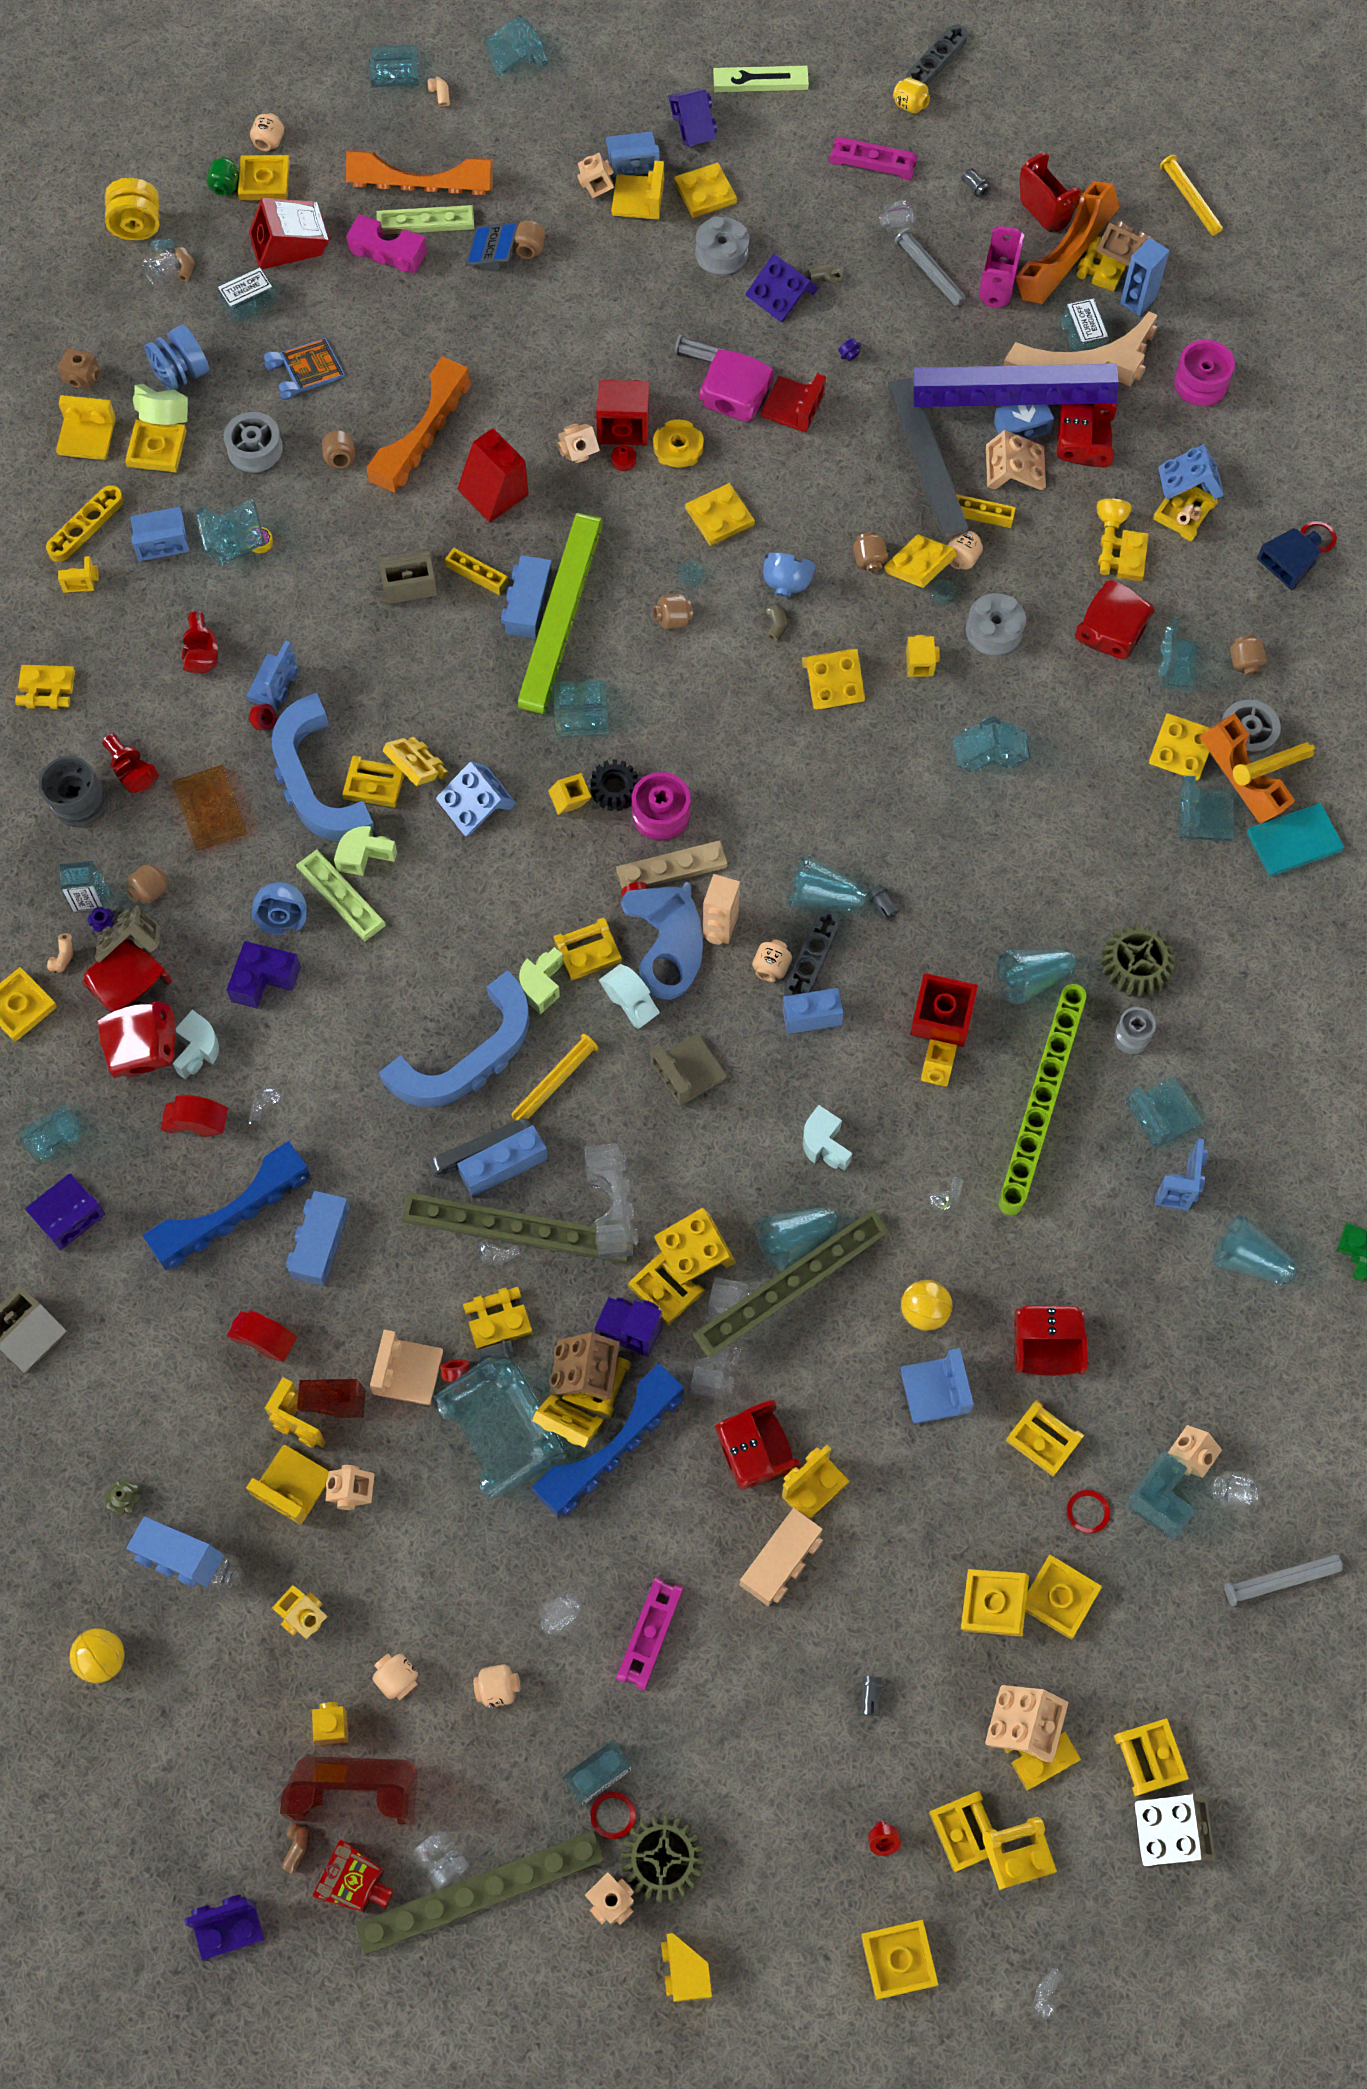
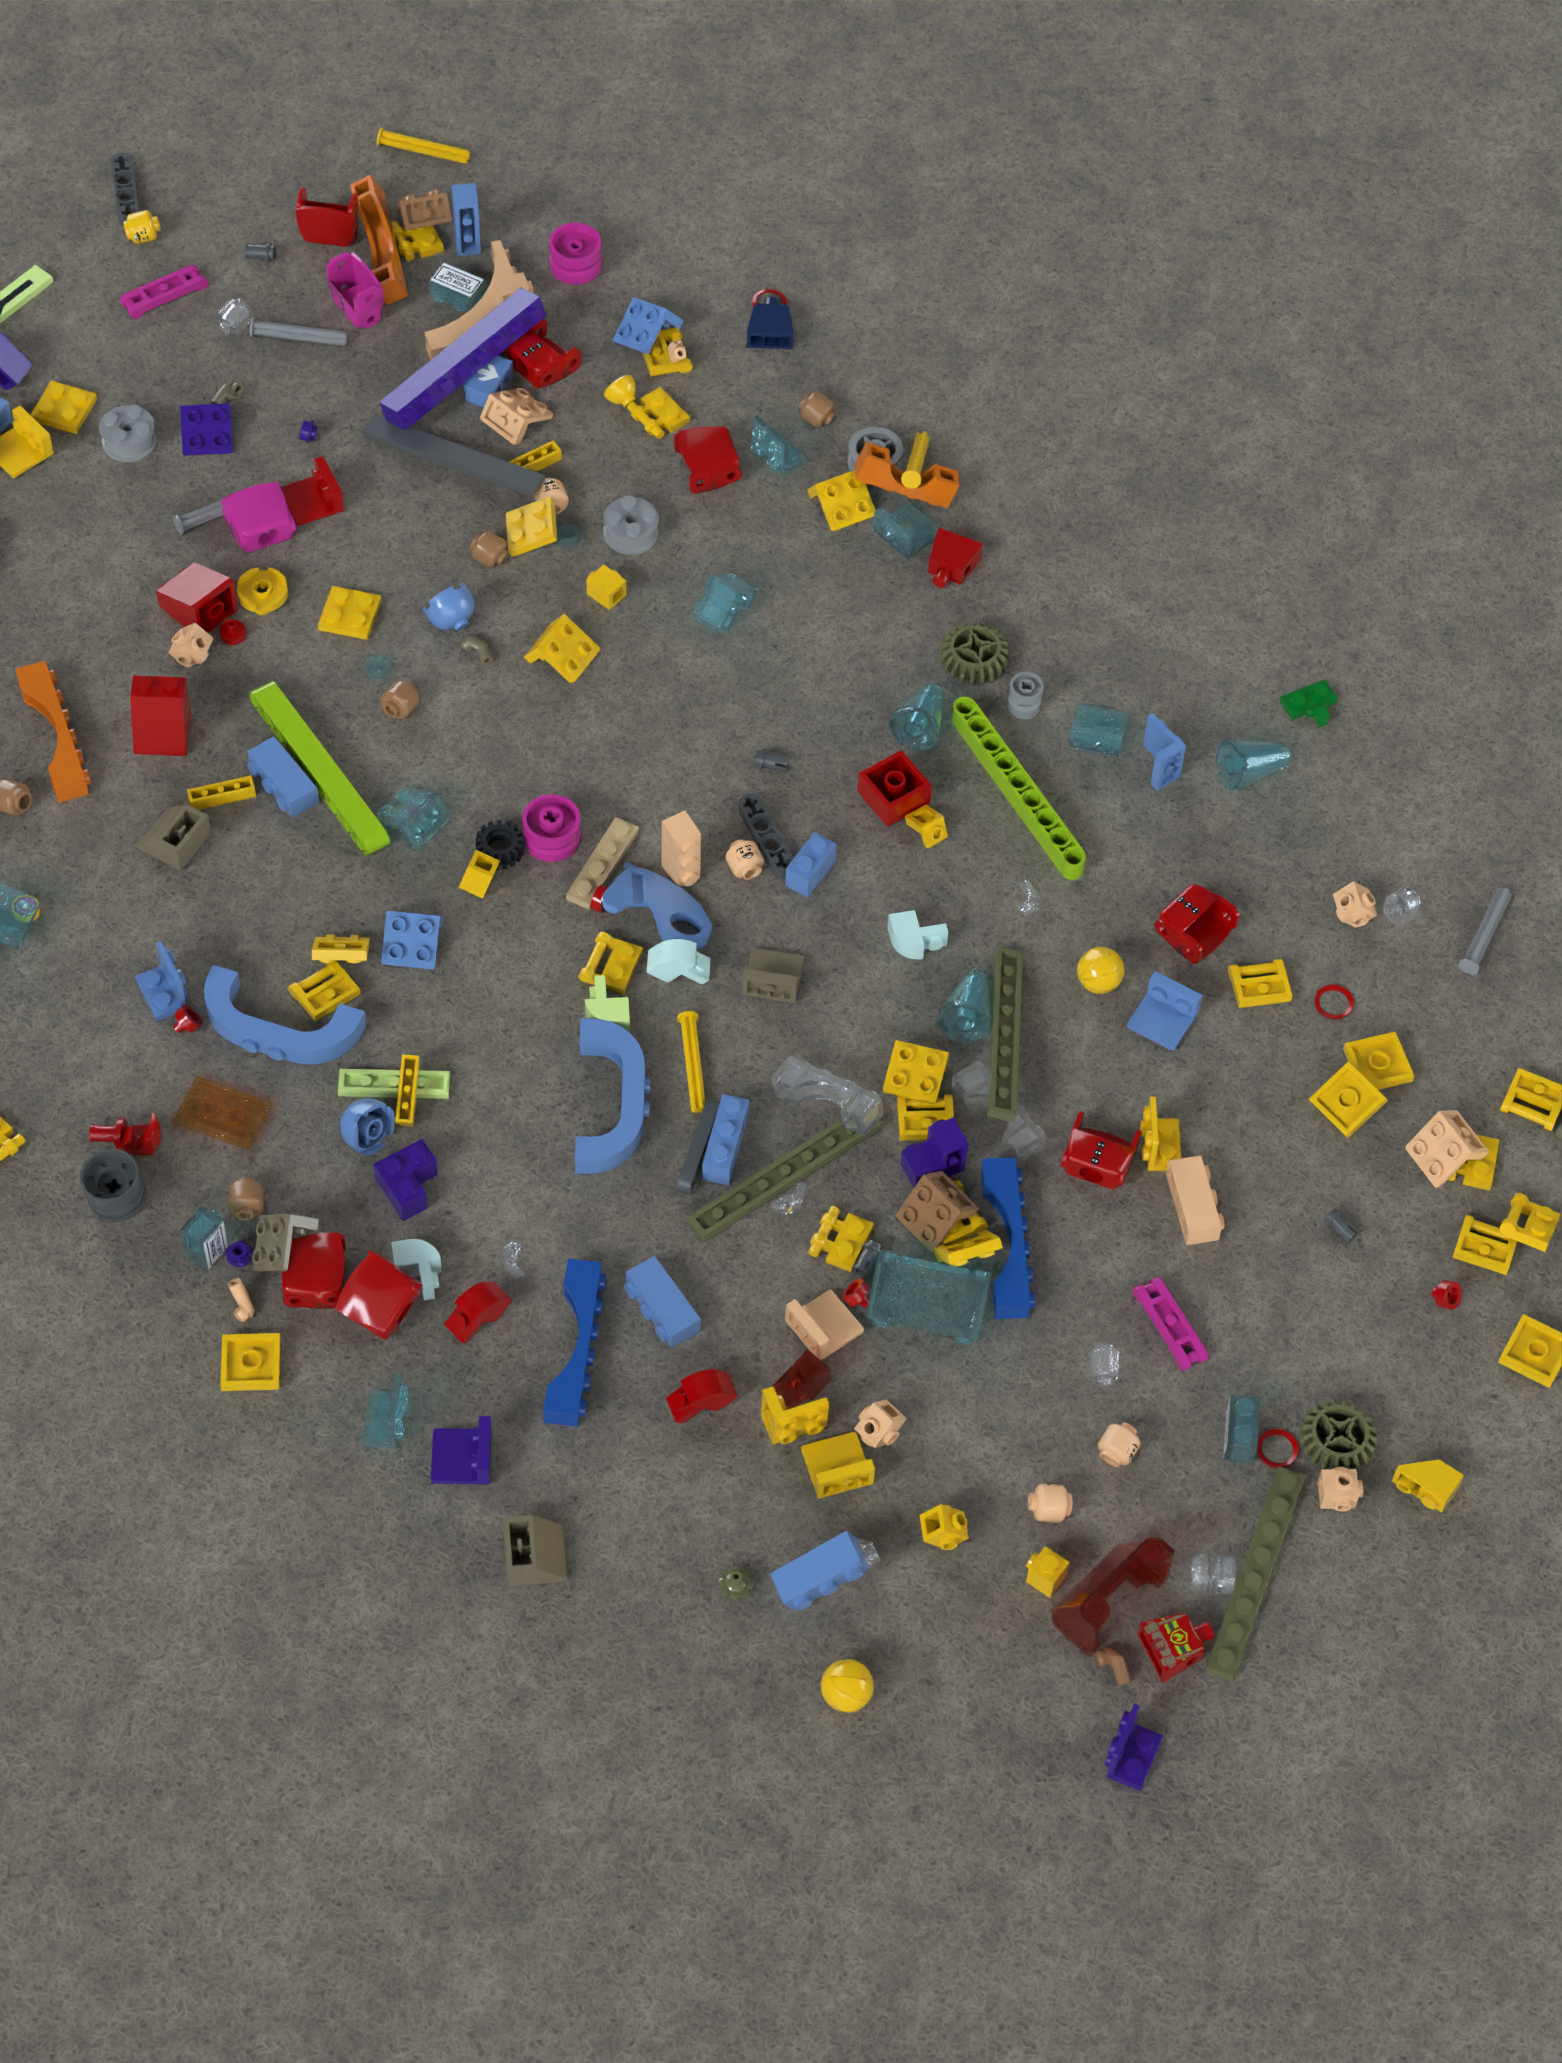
camera: 50 degrees left, 10 degrees down
(200, 646) = (78, 1012): red piece -> none
(336, 909) = (407, 1090): none -> yellow piece
(358, 846) = (372, 1038): yellowish green brick -> none
(824, 888) = (722, 784): clear light blue cone -> none
(1156, 1502) = (1368, 952): clear light blue brick -> none
(1212, 868) = (953, 557): none -> red torso
(1295, 839) = (979, 499): teal tile -> none

